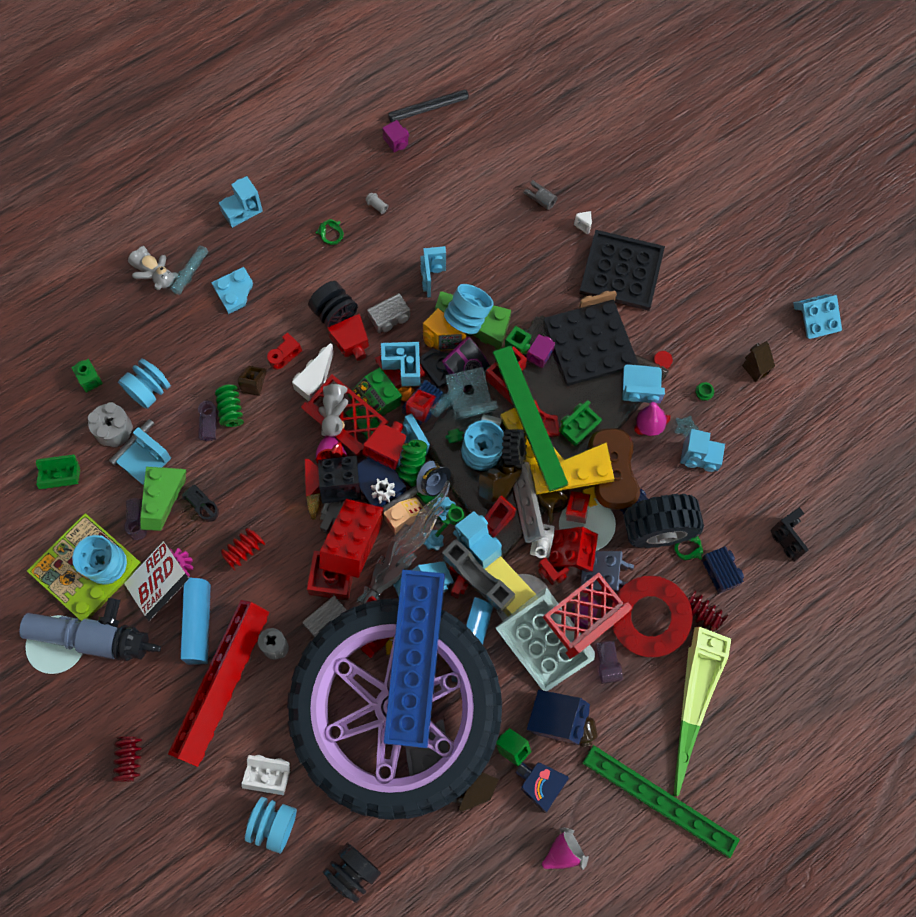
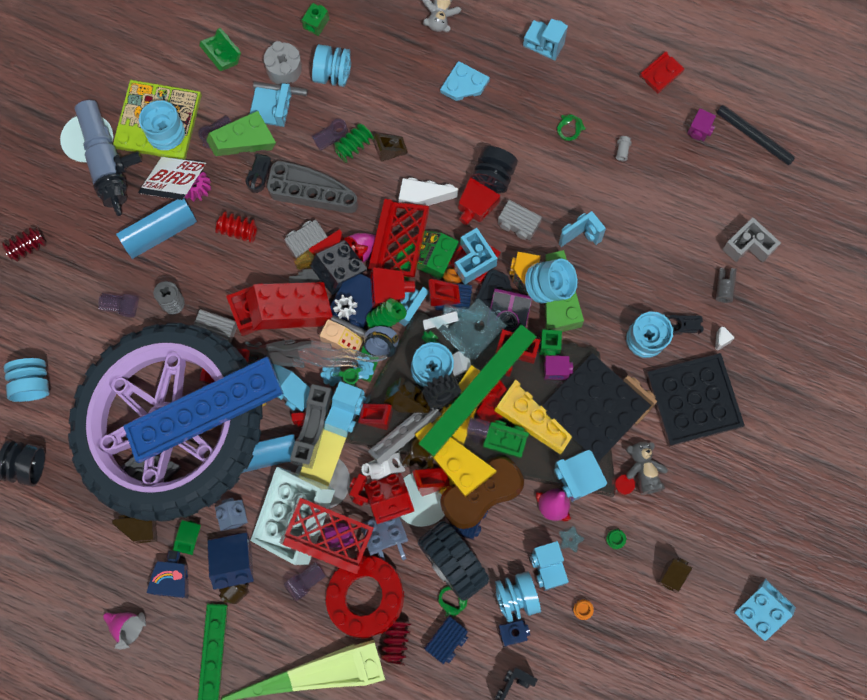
camera: 65 degrees right, 5 degrees up
(185, 276) = (459, 37): clear light blue pin -> none
(219, 683) = (117, 275): red brick -> none
(239, 465) = (309, 182): none -> dark grey beam
(251, 693) = (124, 305): none -> clear purple piece
(266, 774) = (65, 355): white bracket -> none
(284, 353) = (429, 157): red leg -> none
(293, 495) = (305, 238): none -> light grey brick
(329, 139) = (662, 72): none -> red plate
(333, 407) = (395, 223): light grey piece -> none
(444, 420) = (440, 320): none -> white sticker
(514, 695) = (231, 514): none -> sand blue brick
(516, 154) = (752, 238): none -> light grey brick
(551, 269) = (654, 326): none -> medium azure wheel
(555, 242) = (687, 324): none -> black piece
(561, 437) = (478, 429): none -> clear purple piece
(565, 397) = (526, 413): none -> yellow wing
(660, 336) = (646, 468): none -> dark grey piece
(717, 489) = (517, 596): none -> medium azure wheel
(740, 517) = (507, 637): none -> dark blue brick
(750, 448) = (583, 609): none -> orange plate

